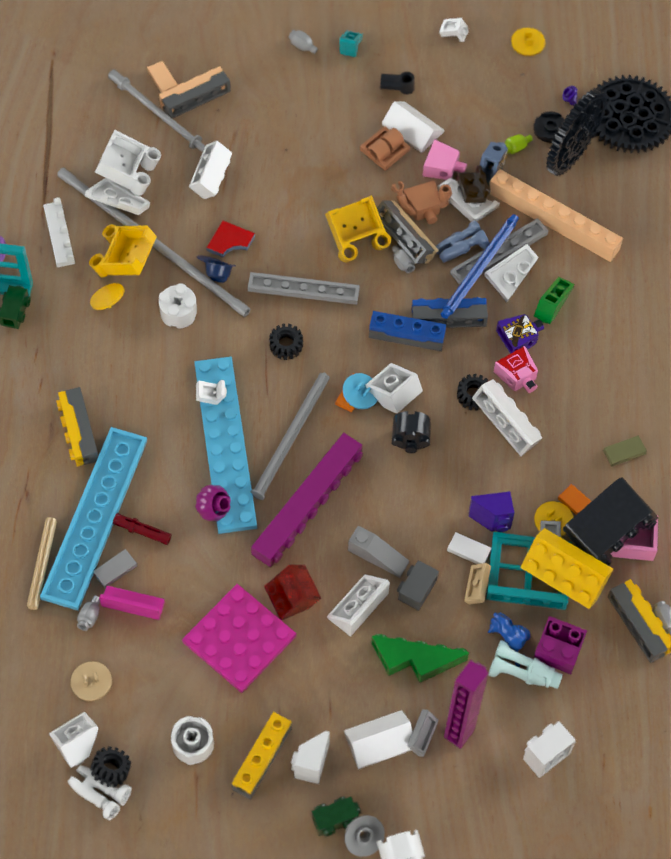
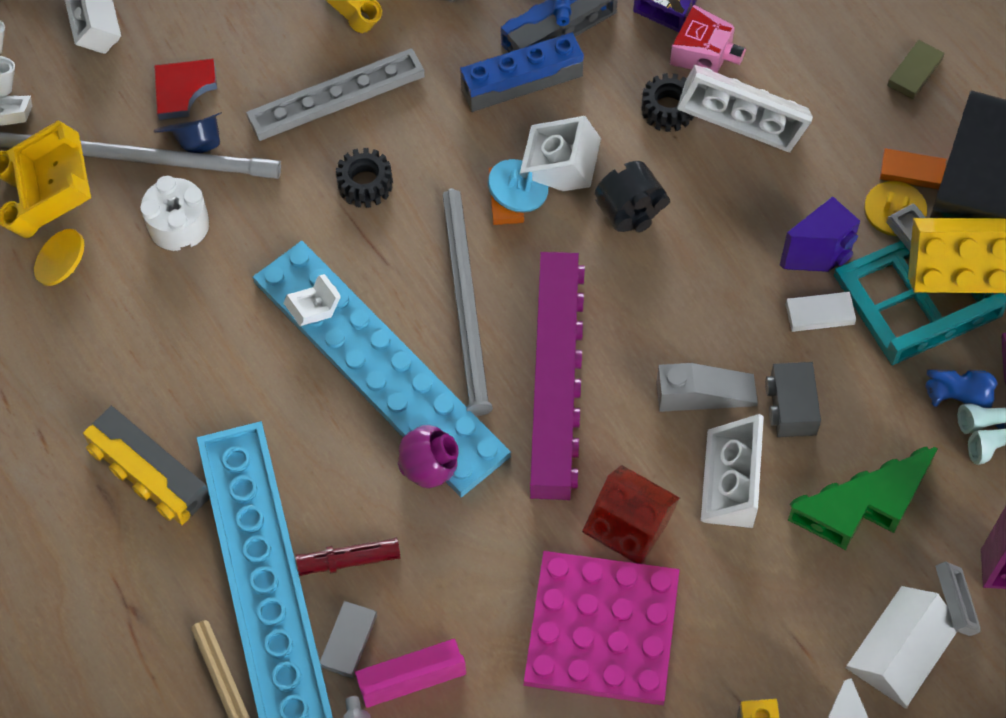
camera: 30 degrees left, 0 degrees up
(477, 583) = (869, 349): tan plate -> none

